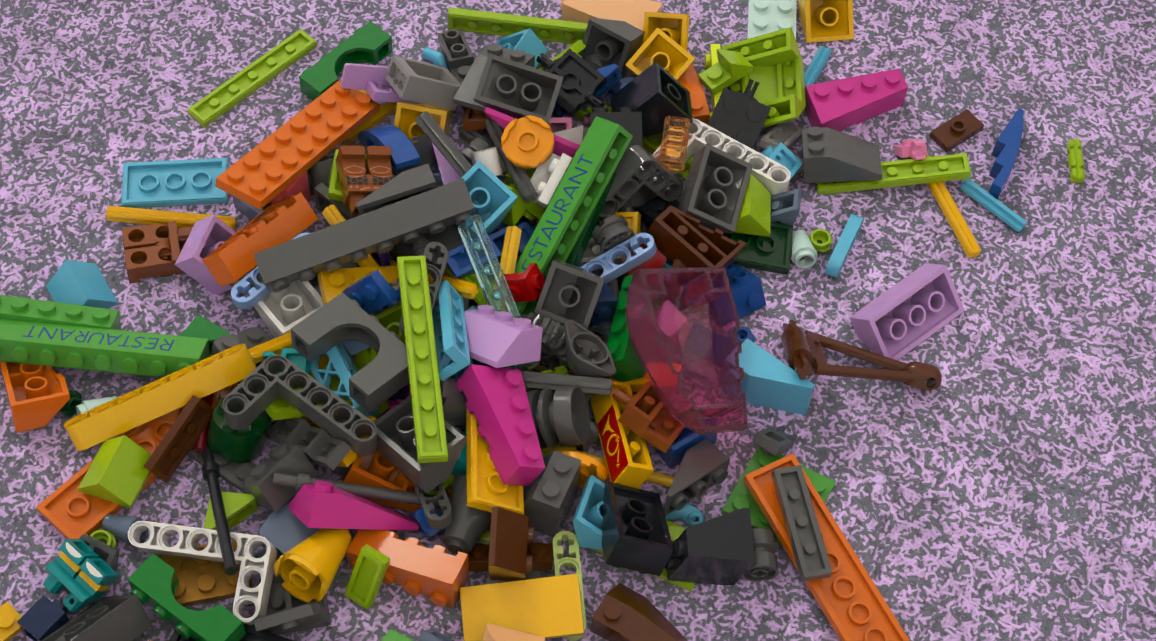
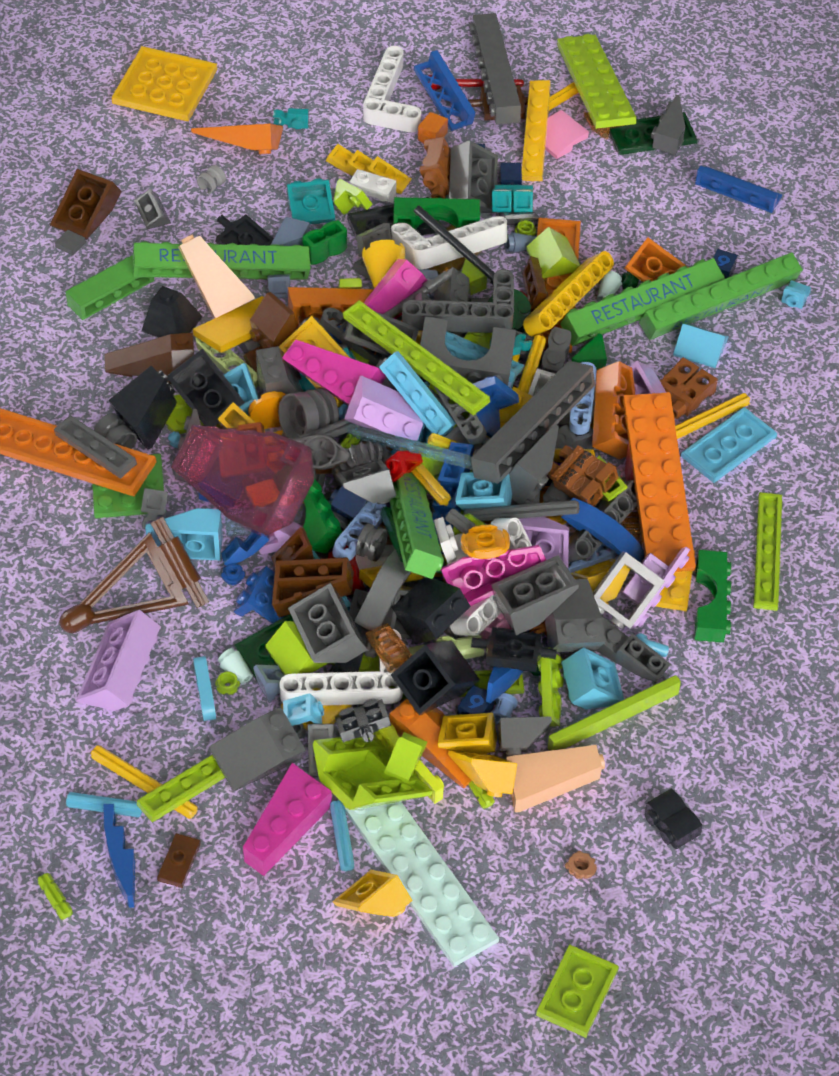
camera: 145 degrees right, 5 degrees down
(911, 148) = (204, 804): bright pink plate -> none

